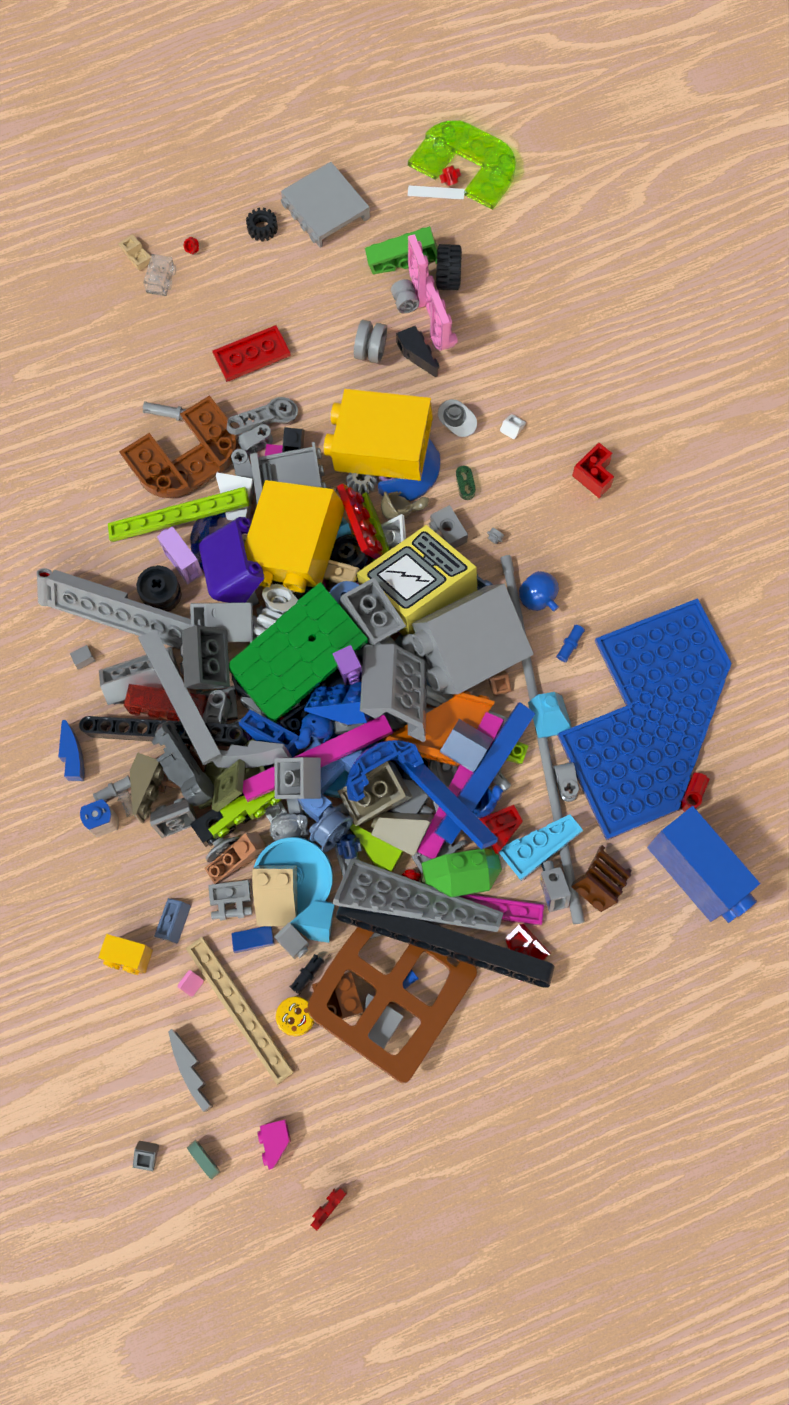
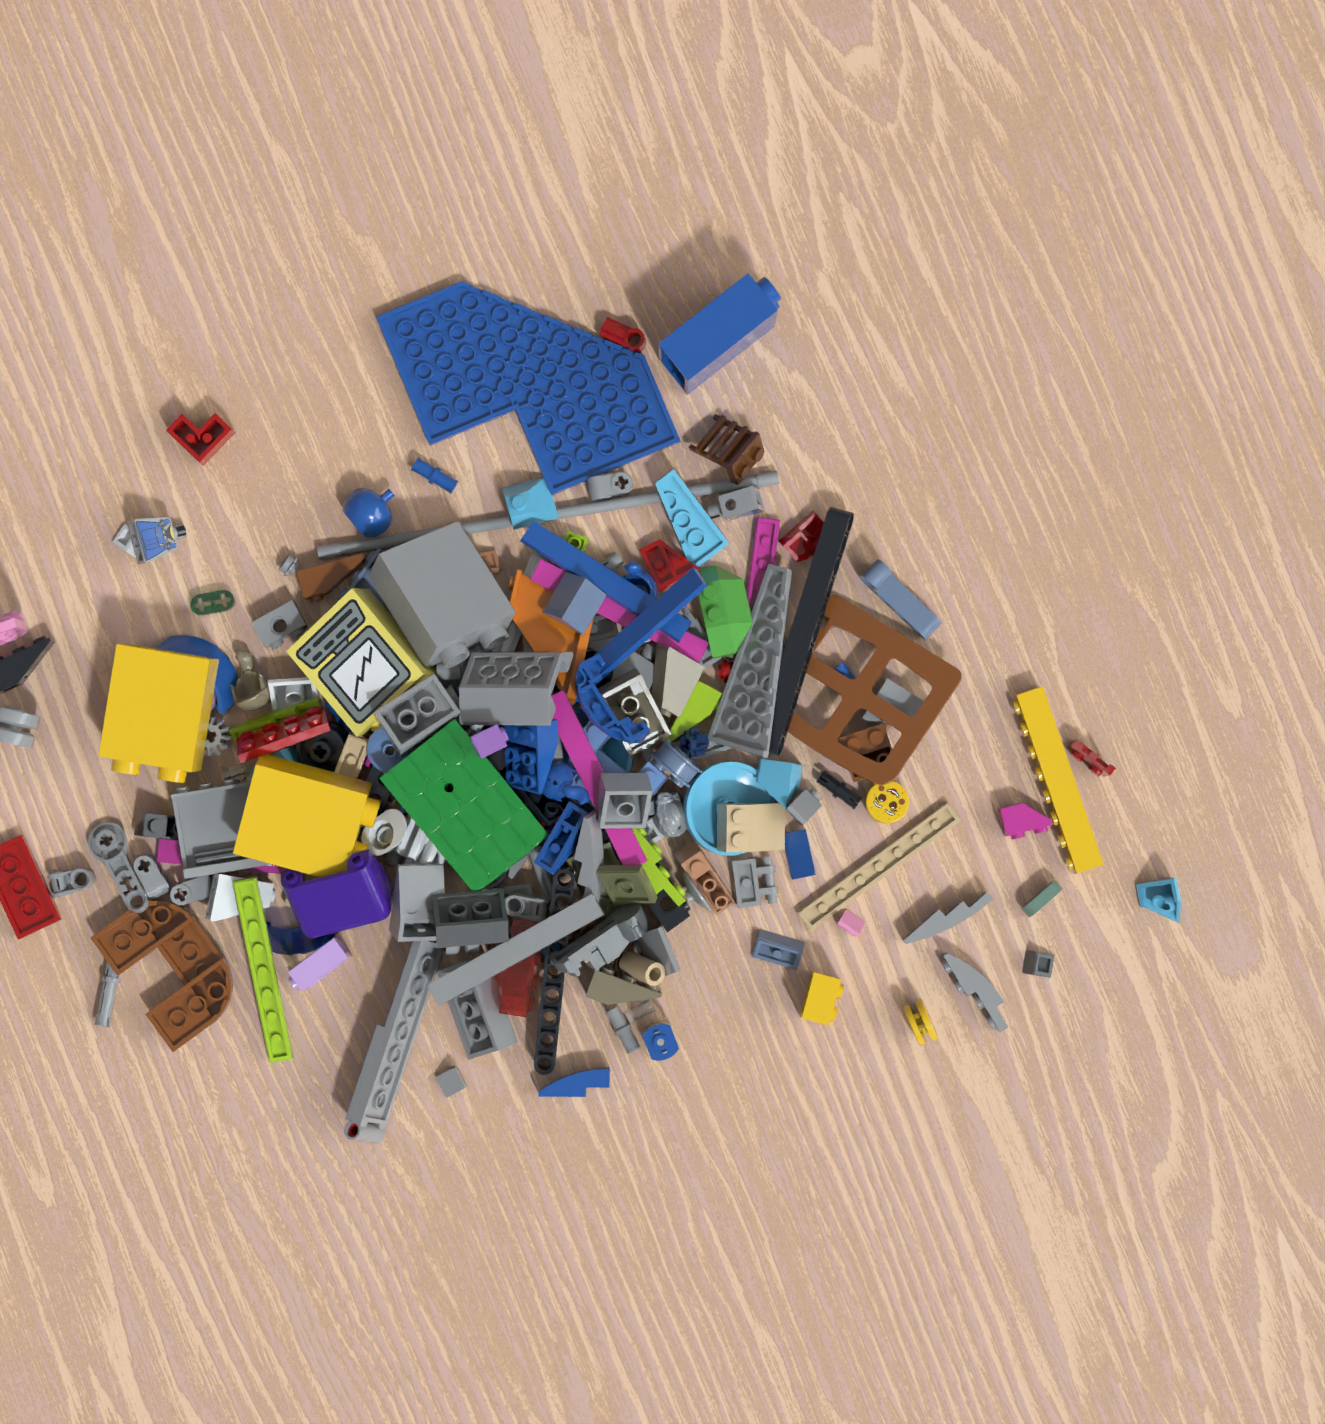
camera: 90 degrees left, 15 degrees up
(98, 1043) = (920, 1022): none -> yellow head
(132, 1092) = (970, 981): none -> light grey slope
(158, 800) = (642, 968): none -> tan brick
(159, 588) = (350, 991): black wheel -> none
(199, 1276) = (1161, 897): none -> medium azure slope
(253, 384) = (67, 881): none -> light grey piece
(308, 1177) = (1058, 780): none -> yellow brick
(457, 418) = (121, 612): light grey piece -> none
(473, 1030) = (900, 599): none -> sand blue beam
(485, 559) = (324, 578): none -> dark orange slope
(515, 438) = (154, 537): none -> torso

